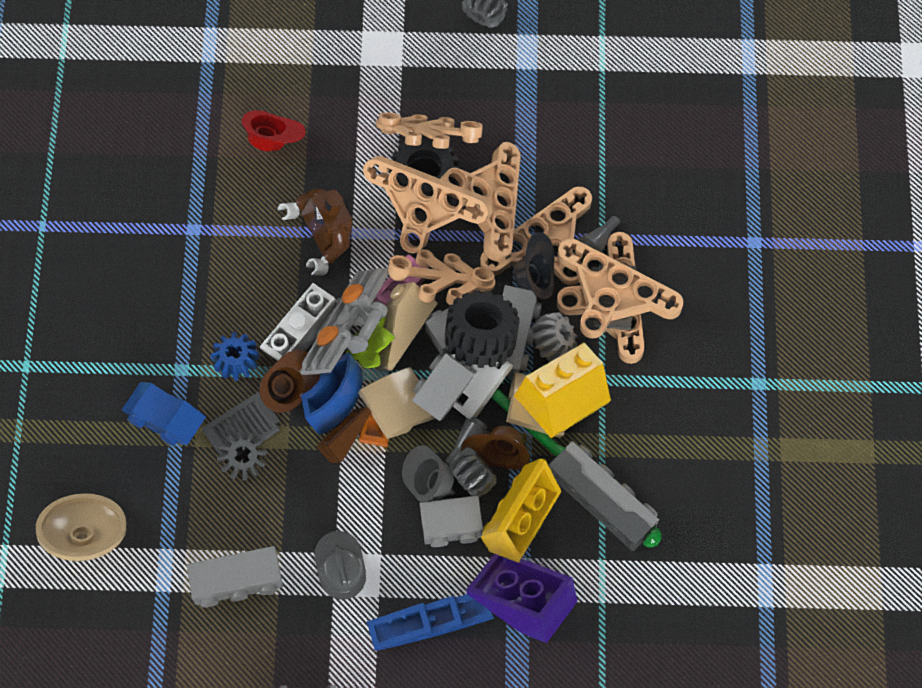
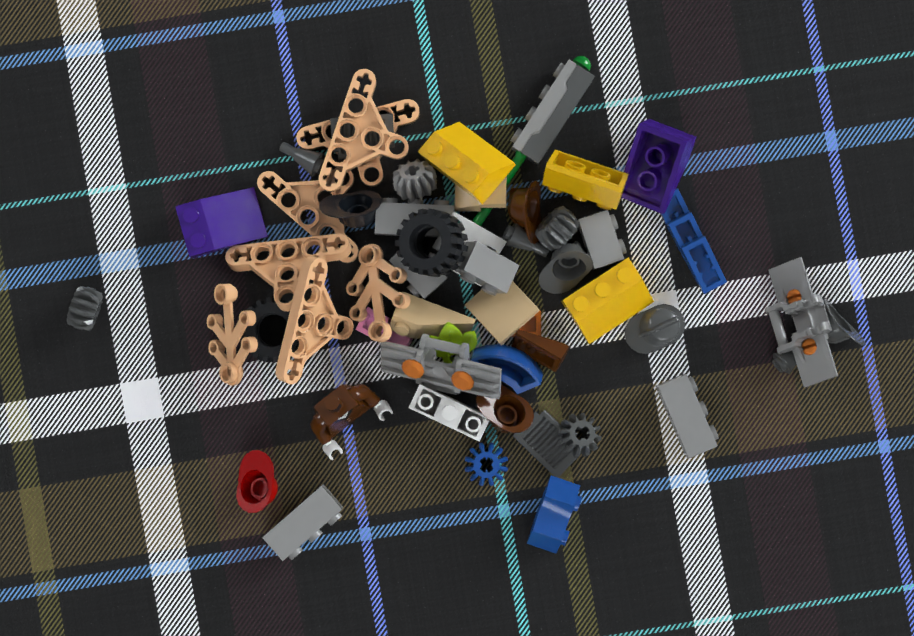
camera: 100 degrees left, 20 degrees up
(81, 527) = (659, 559): tan dish -> none
(219, 169) = (304, 523): none -> light grey brick
(382, 515) = (608, 300): none -> yellow slope
(546, 145) = (221, 222): none -> dark purple slope

